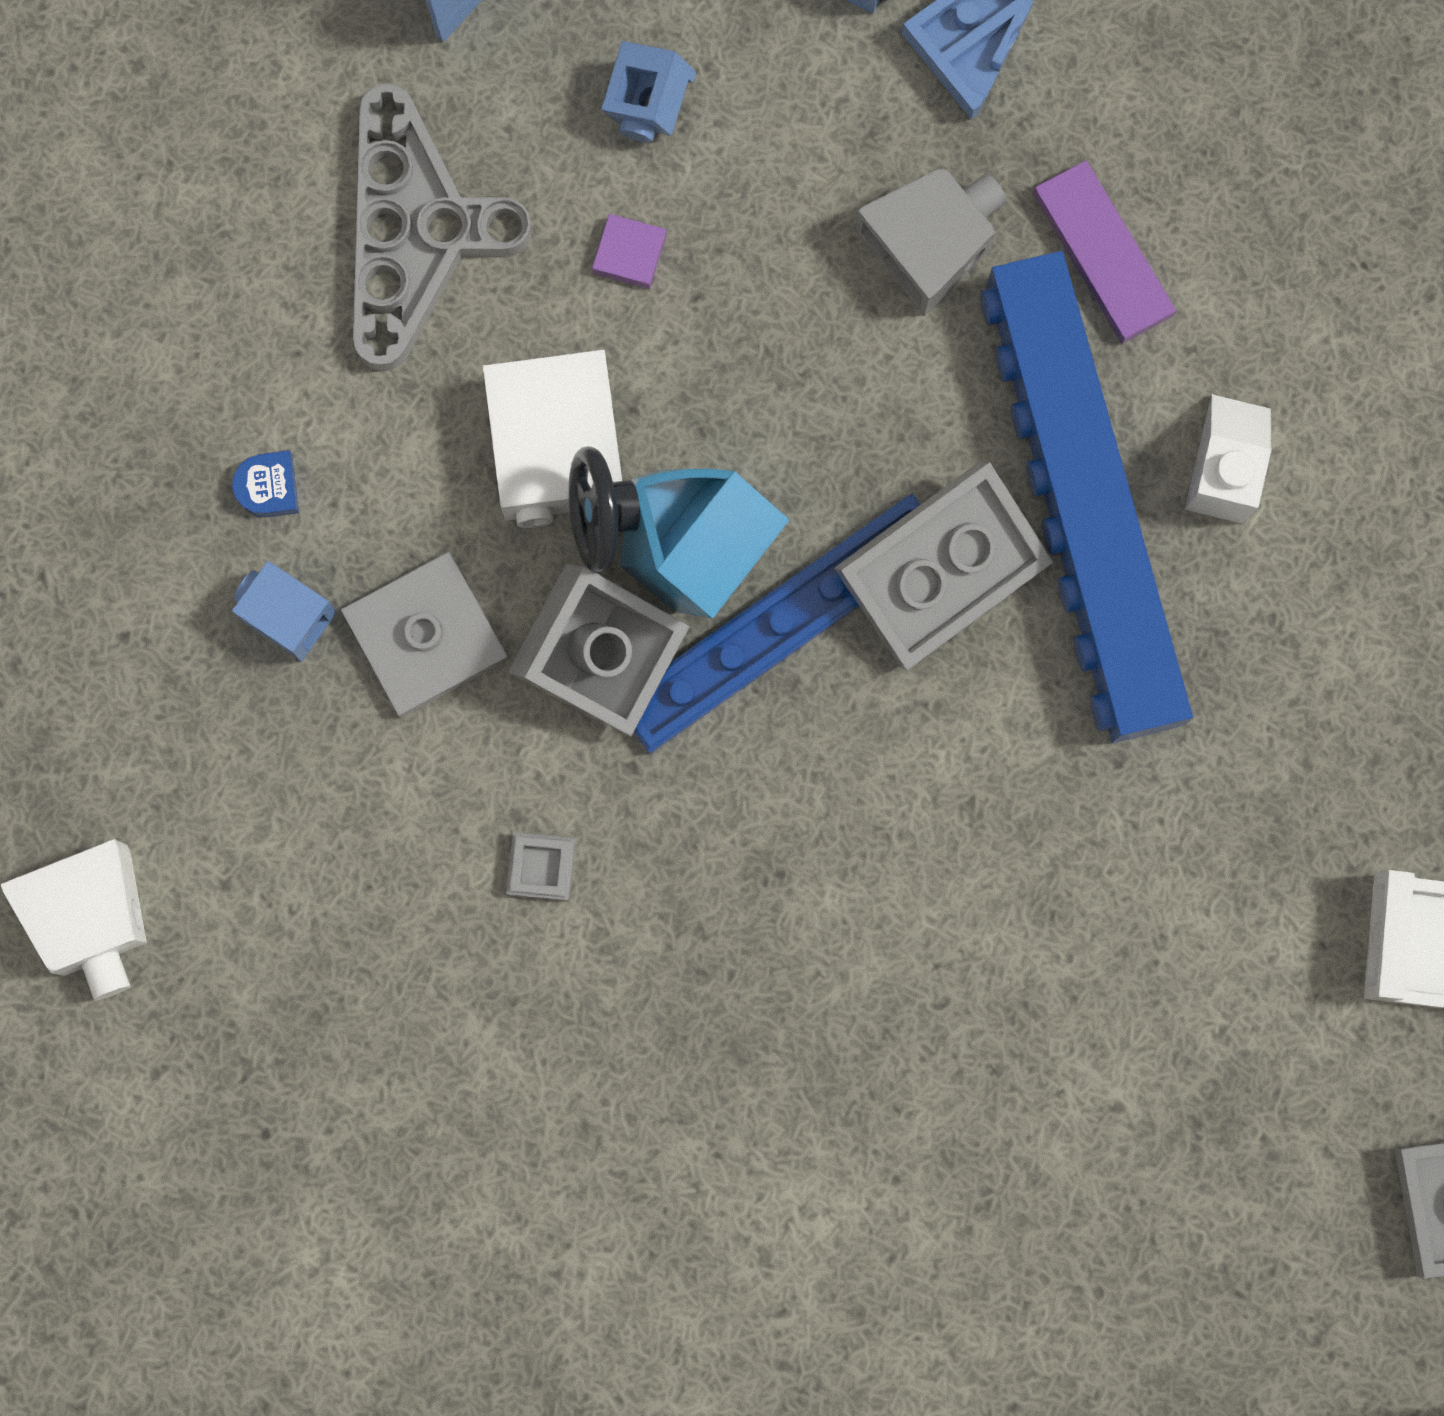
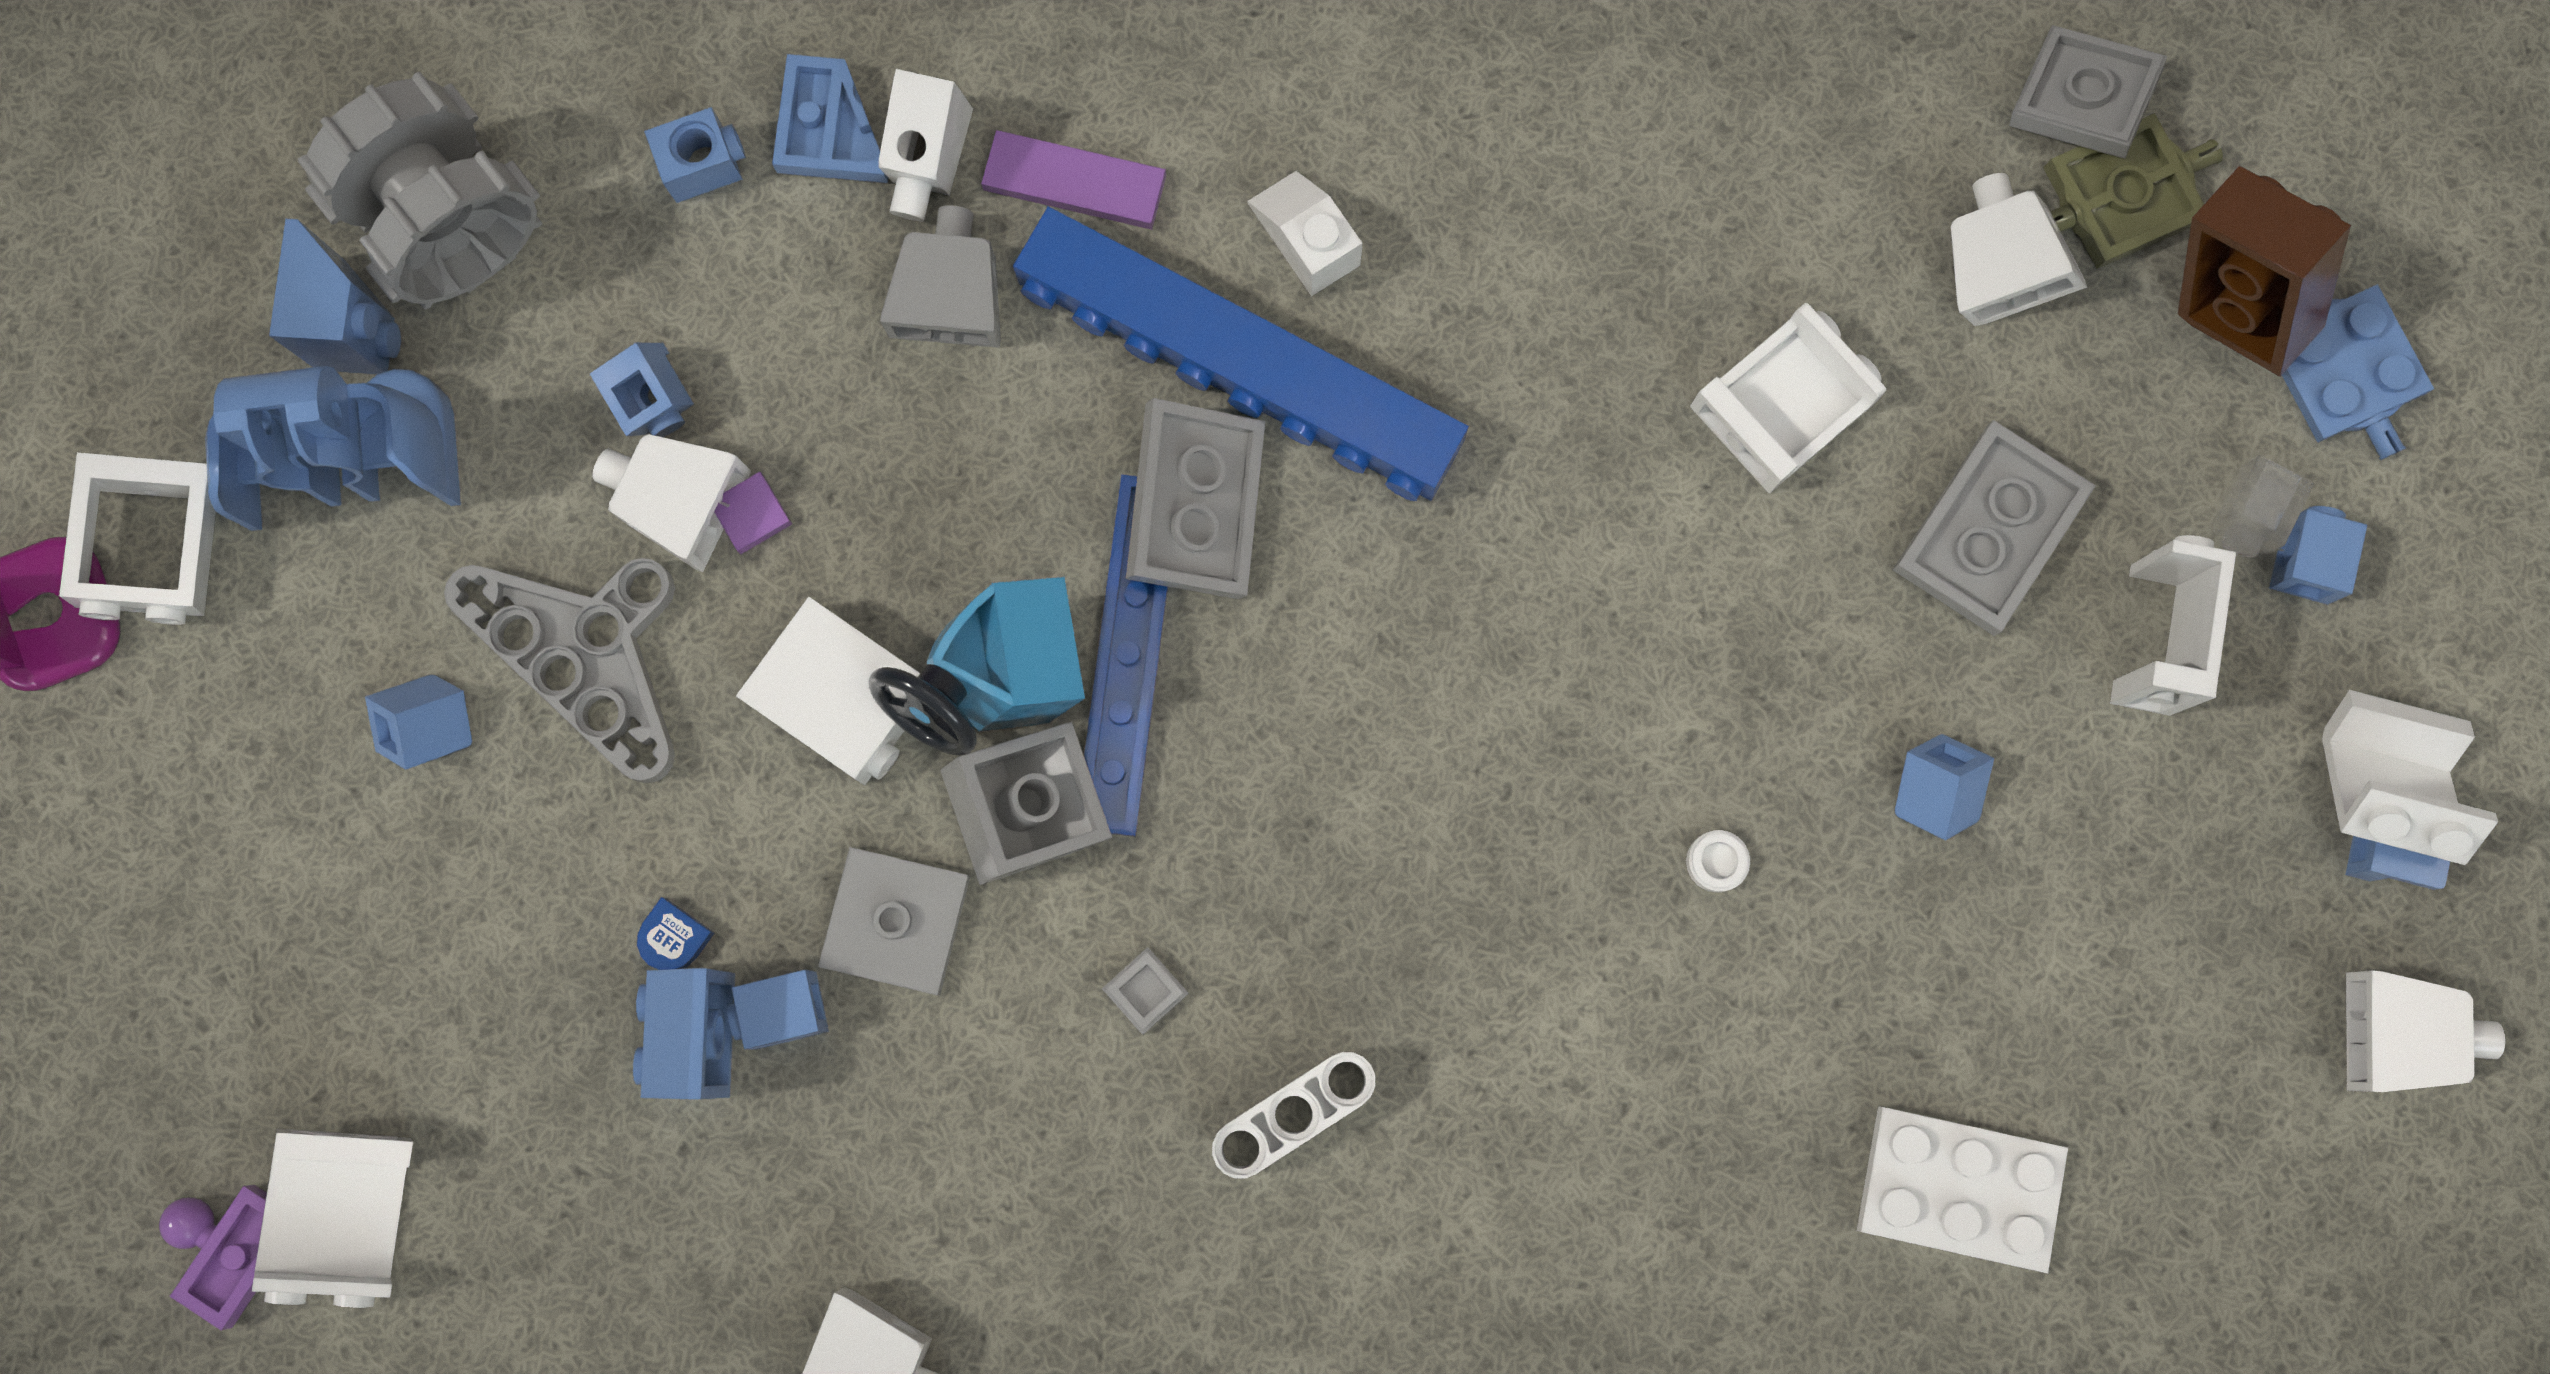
camera: 45 degrees left, 0 degrees up
(204, 560) = (684, 1034): none -> medium blue slope
(259, 160) = (419, 721): none -> medium blue panel
(516, 1060) = (1275, 1141): none -> white beam
(590, 181) = (671, 493): none -> white torso
(1037, 1215) = (1718, 861): none -> white tile
(1054, 113) = (942, 117): none -> white torso
(1259, 1341) = (1943, 786): none -> medium blue panel

